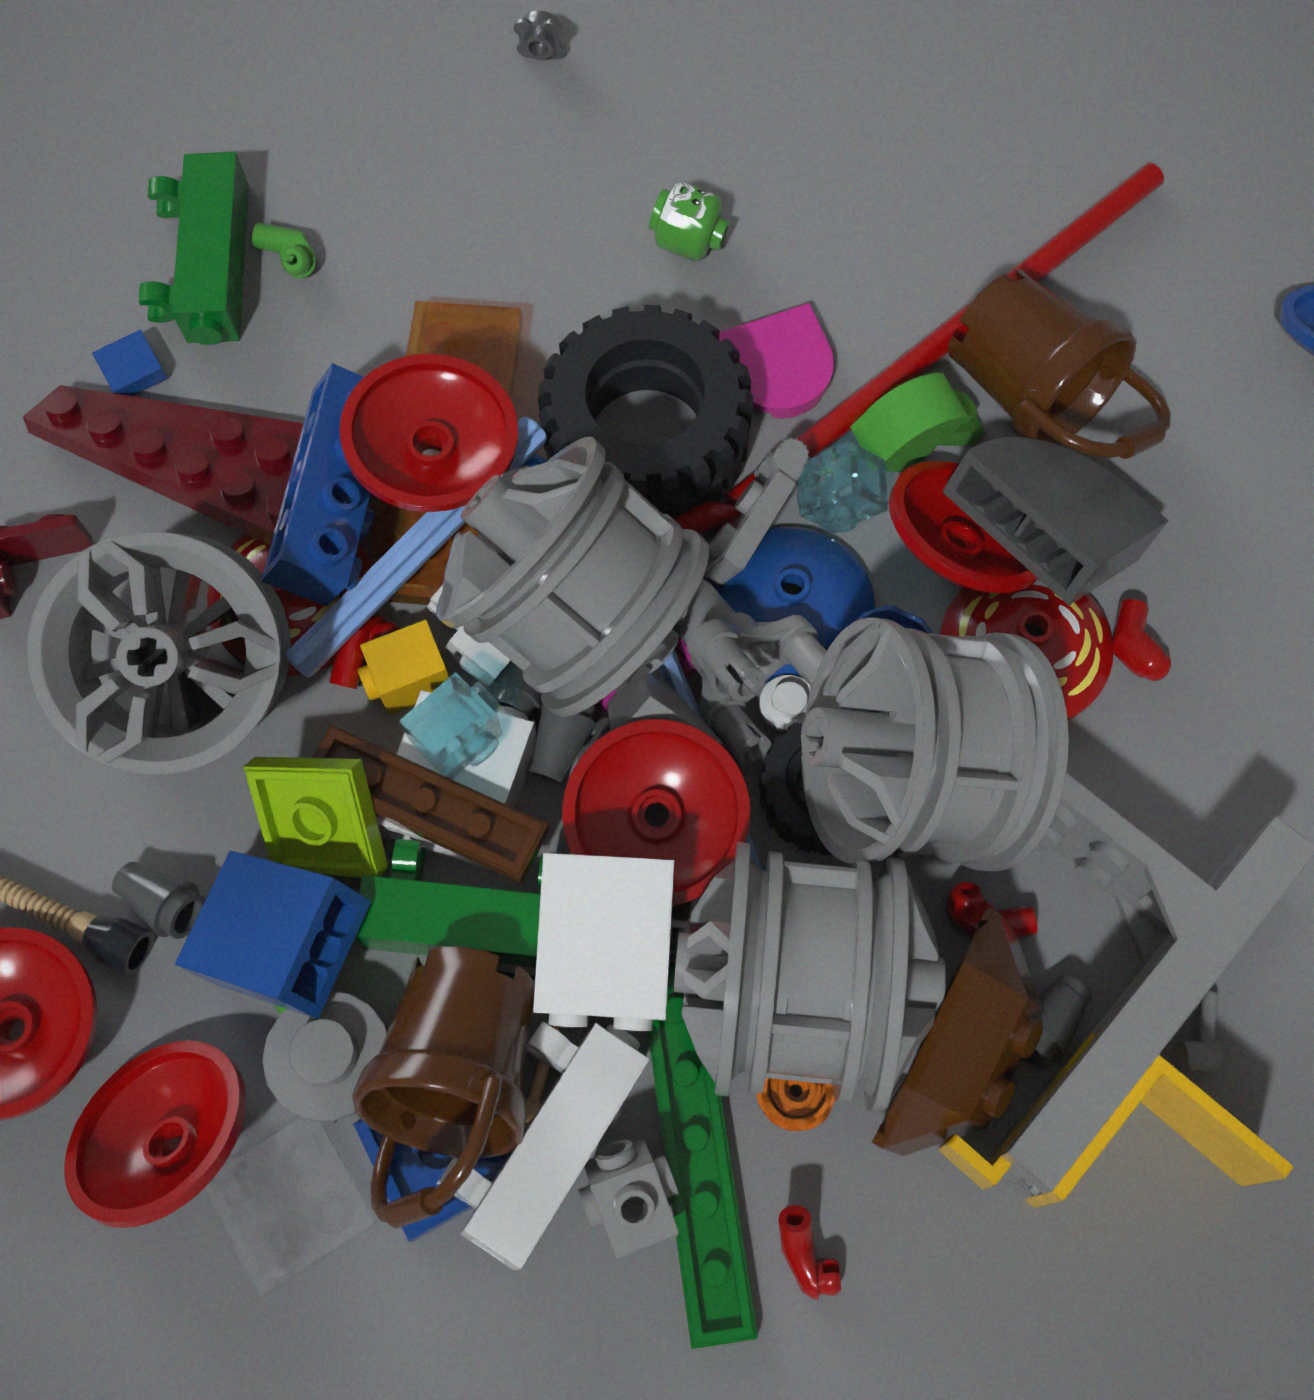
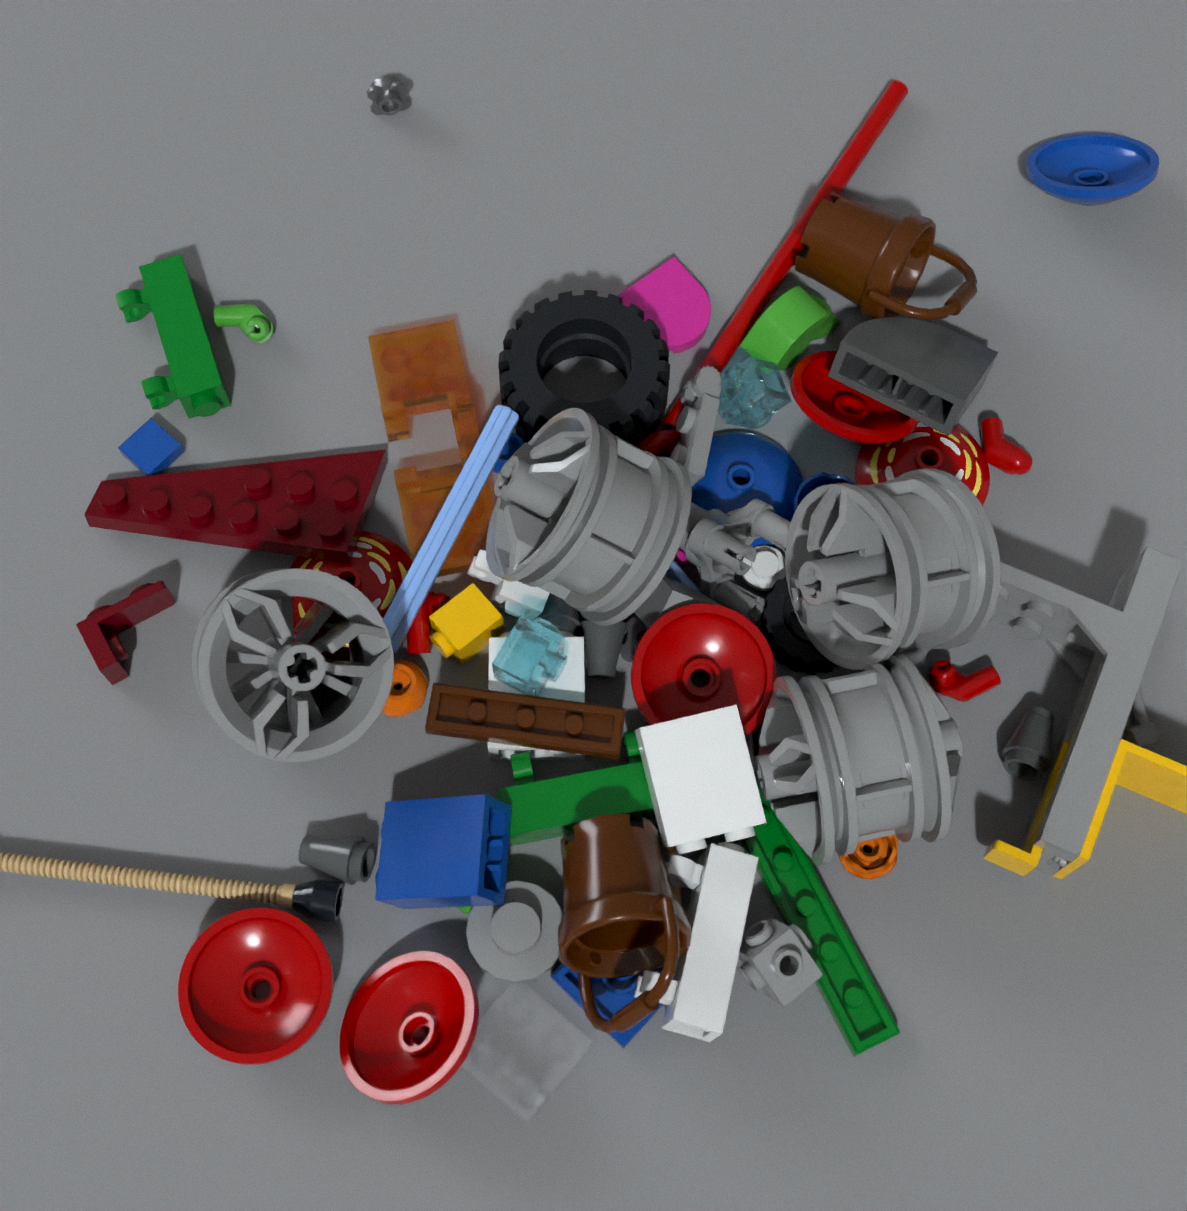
camera: 20 degrees left, 0 degrees up
(304, 736) = (413, 692): none -> orange plate
(317, 815) = (445, 753): lime tile -> none
(322, 505) = (364, 499): blue brick -> none
(423, 406) = (437, 415): red dish -> none
(688, 221) = (561, 217): bright green head -> none
(798, 1248) = (907, 960): red arm -> none
(972, 1047) = (988, 777): reddish brown wedge -> none

